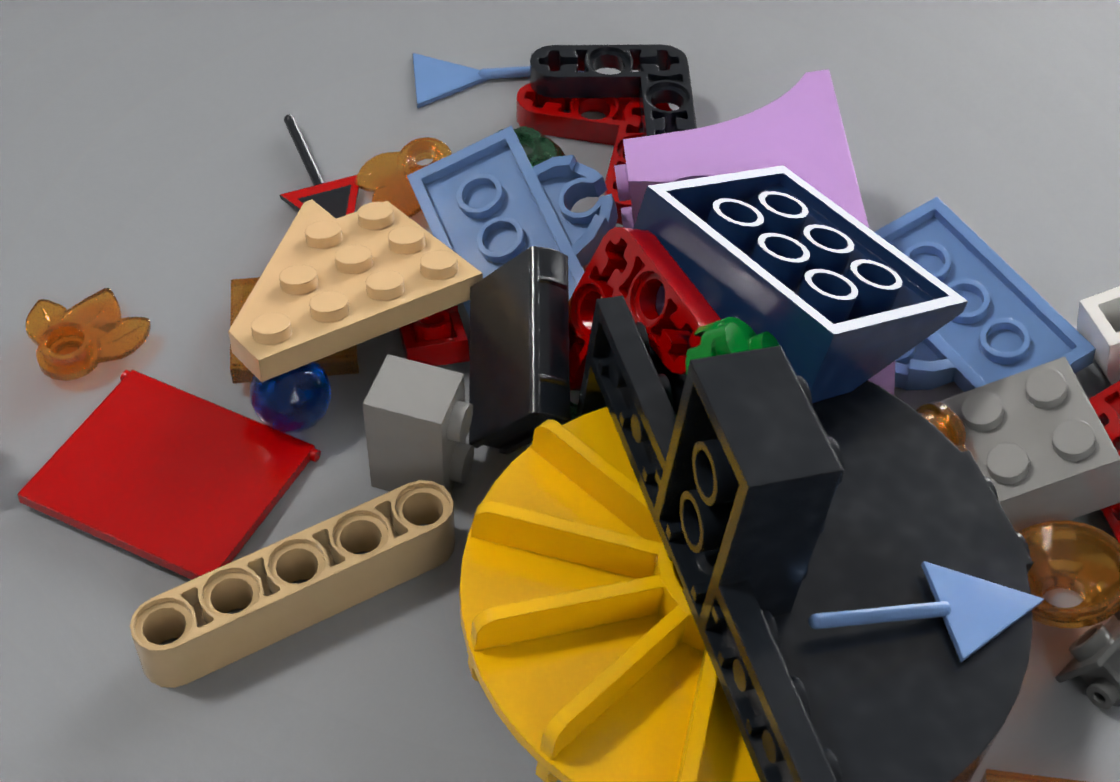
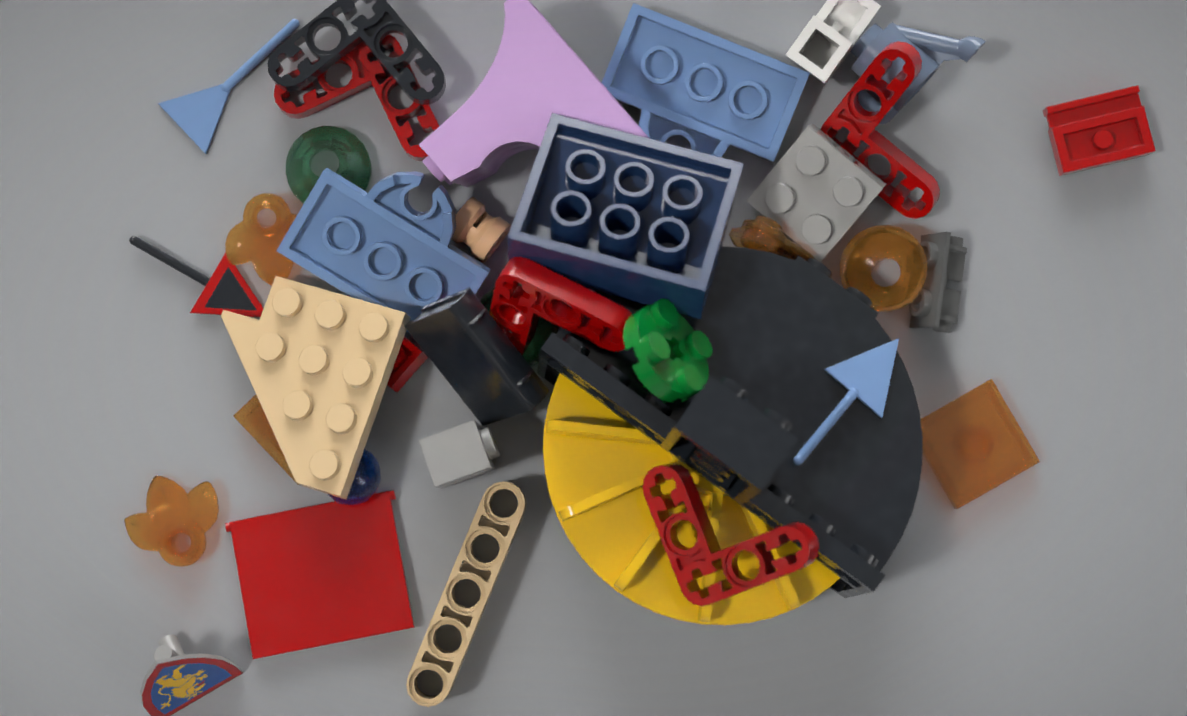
camera: 35 degrees left, 35 degrees up
(596, 646) = (706, 554): none -> red beam

